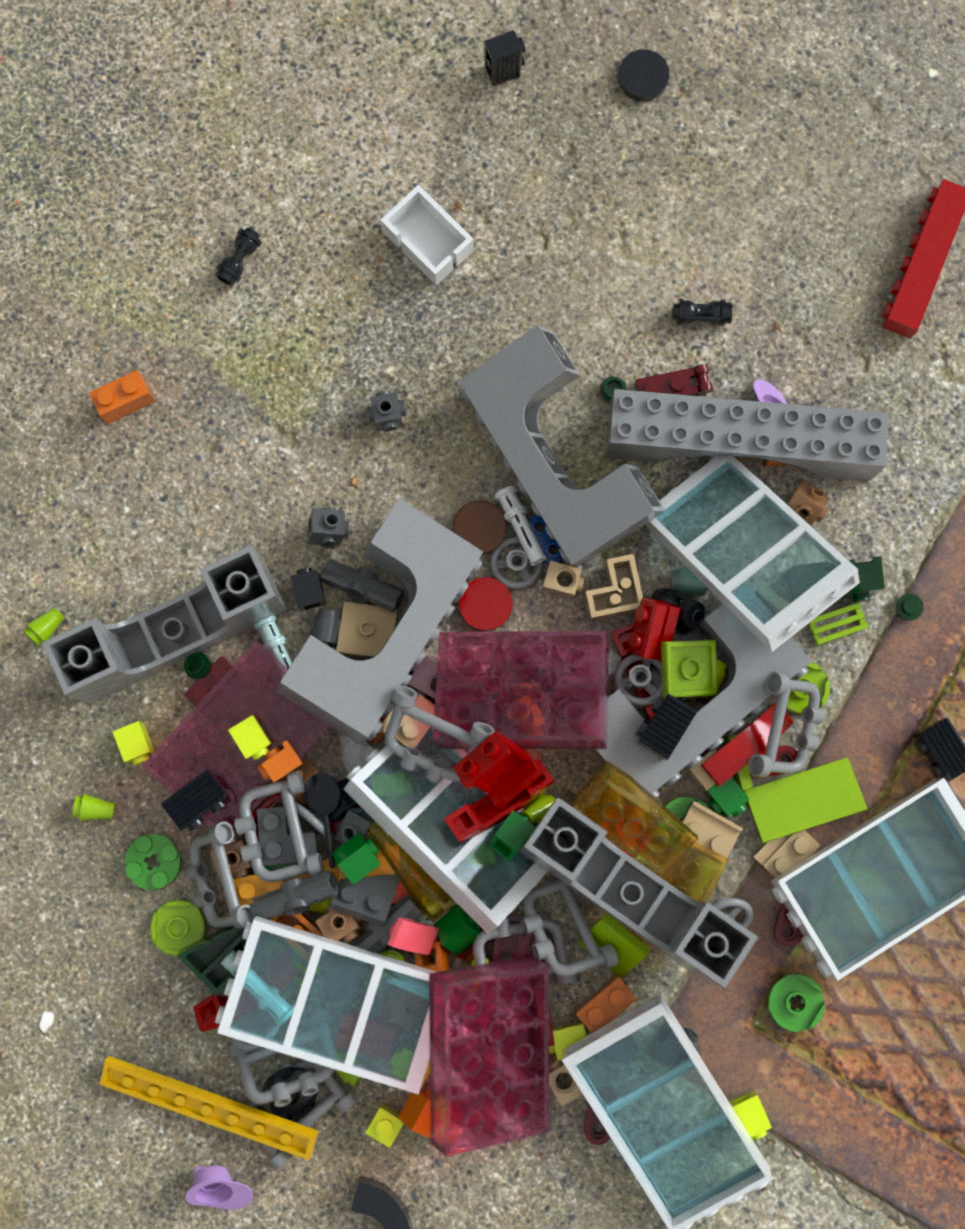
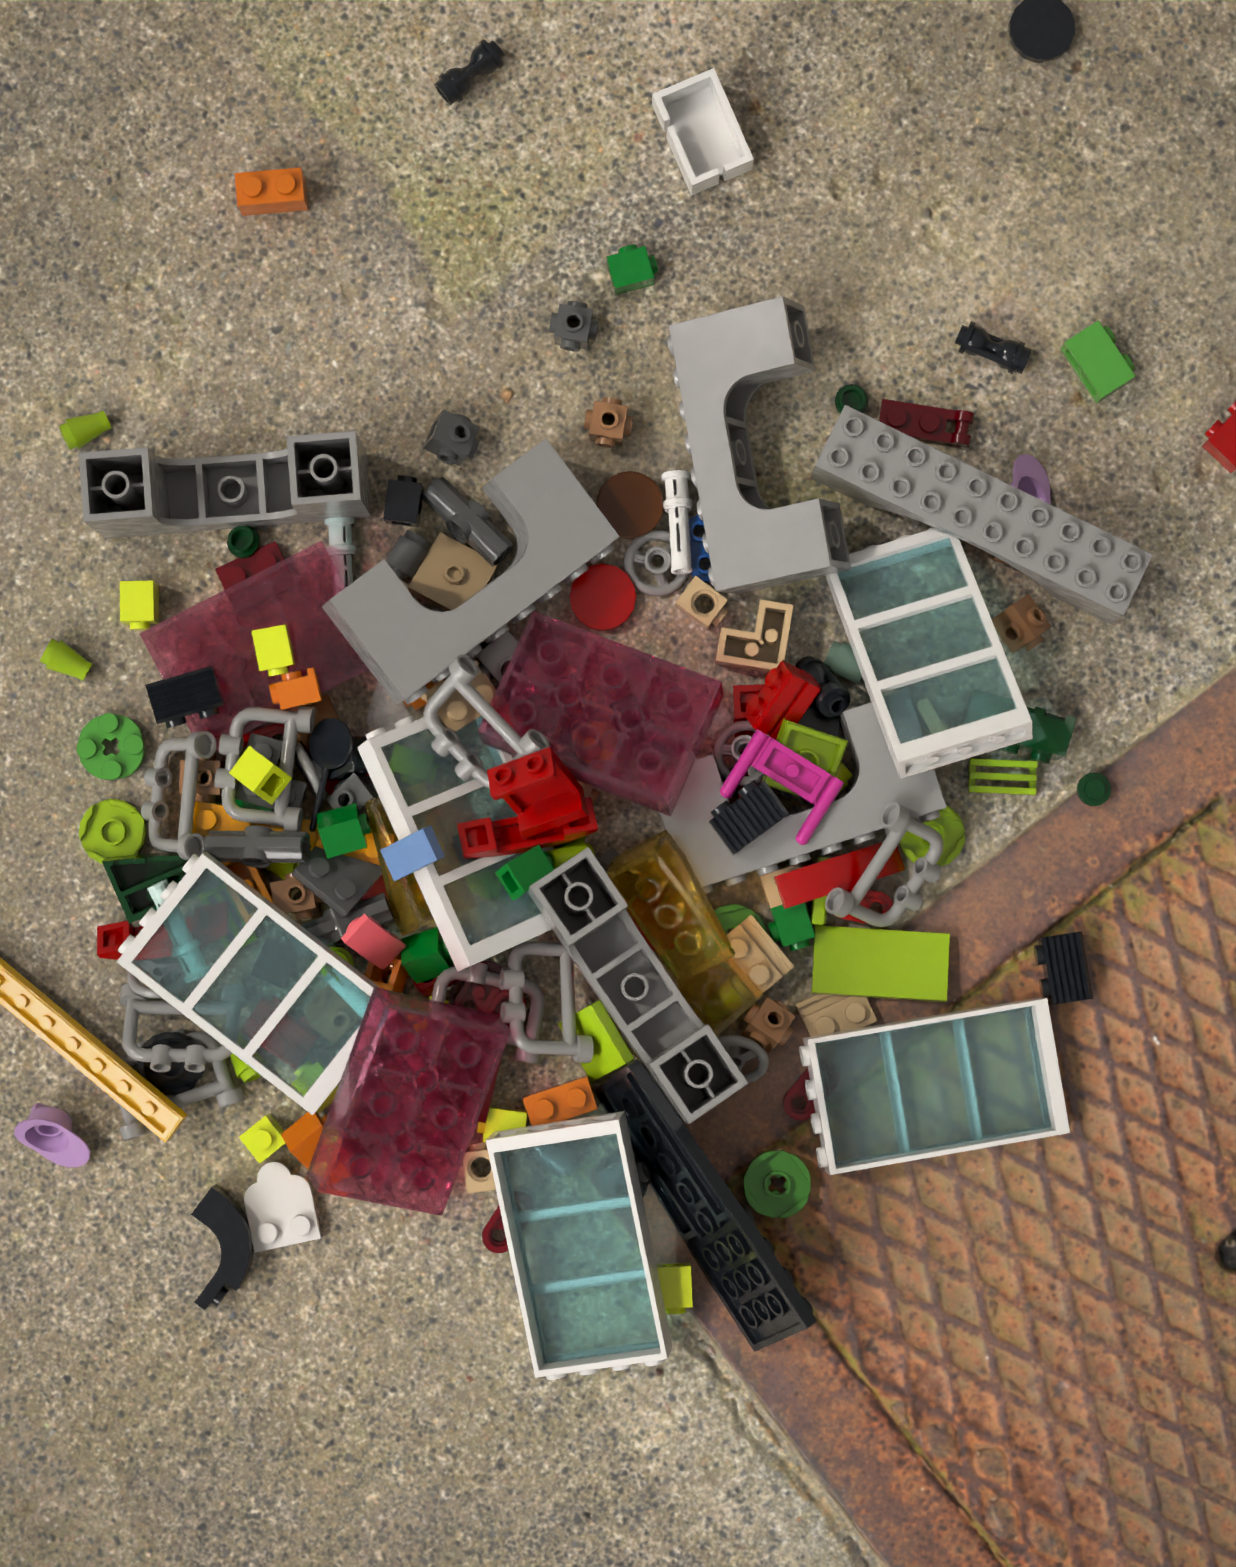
camera: 25 degrees right, 5 degrees up
(276, 840) = (260, 775): none -> neon yellow brick
(413, 354) = (631, 269): none -> green brick
(418, 855) = (412, 853): none -> medium blue tile
(419, 1176) = (281, 1209): none -> white plate
(440, 481) = (608, 435): none -> medium nougat brick
(683, 679) = (791, 772): none -> dark pink plate
(741, 880) = (768, 1024): none -> medium nougat brick
(758, 1051) = (707, 1214): none -> black wing
(782, 293) = (1098, 361): none -> bright green brick

